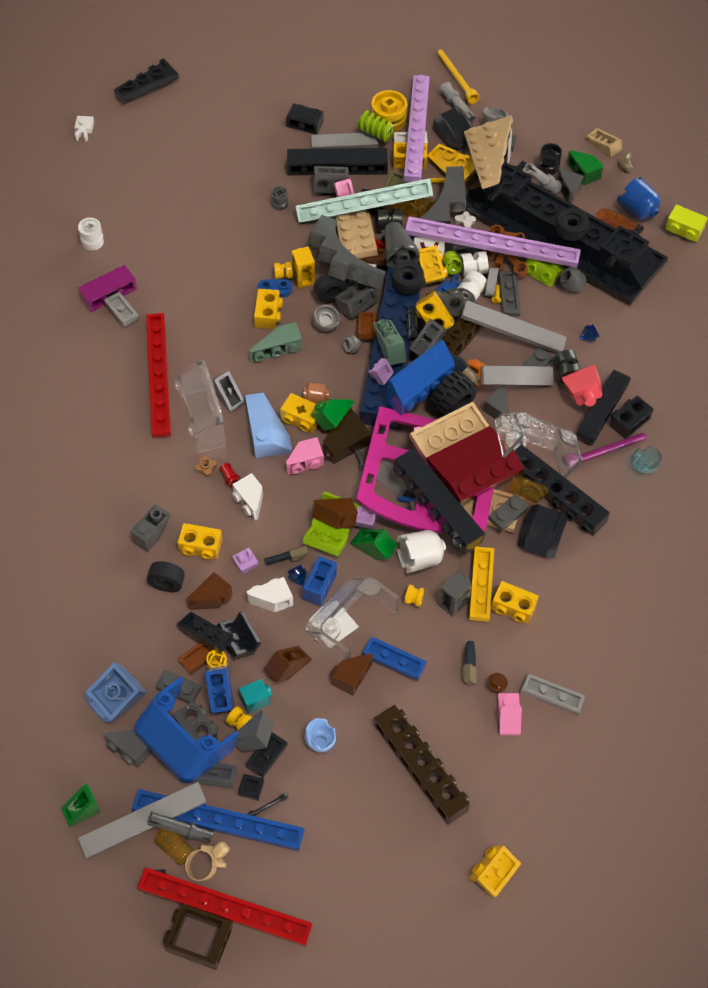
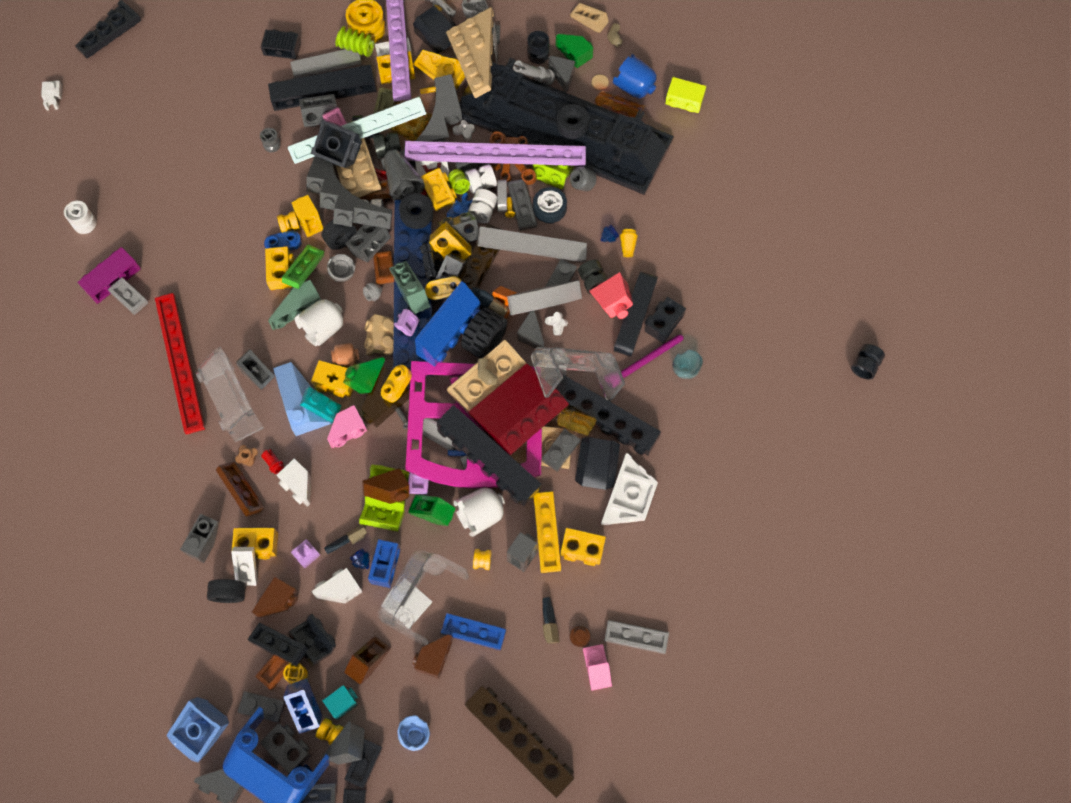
camera: 10 degrees left, 10 degrees up
(188, 556) = (245, 565): none -> white plate
(194, 492) = (240, 489): none -> reddish brown plate
(284, 431) = (320, 404): none -> teal plate
(290, 310) = (302, 266): none -> bright green plate
(298, 360) = (320, 321): none -> white cylinder
(343, 208) = (336, 144): none -> black slope
(352, 383) = (379, 335): none -> tan bracket
(361, 423) = (396, 383): none -> yellow plate
(421, 344) = (443, 285): none -> yellow plate
(448, 427) = (484, 374): none -> dark tan arm
(525, 401) = (557, 322): none -> white piece
(538, 305) = (555, 211): none -> wheel
(569, 566) = (630, 495): none -> white wing
(604, 200) = (600, 82): none -> tan piece
(607, 342) = (628, 242): none -> yellow cone

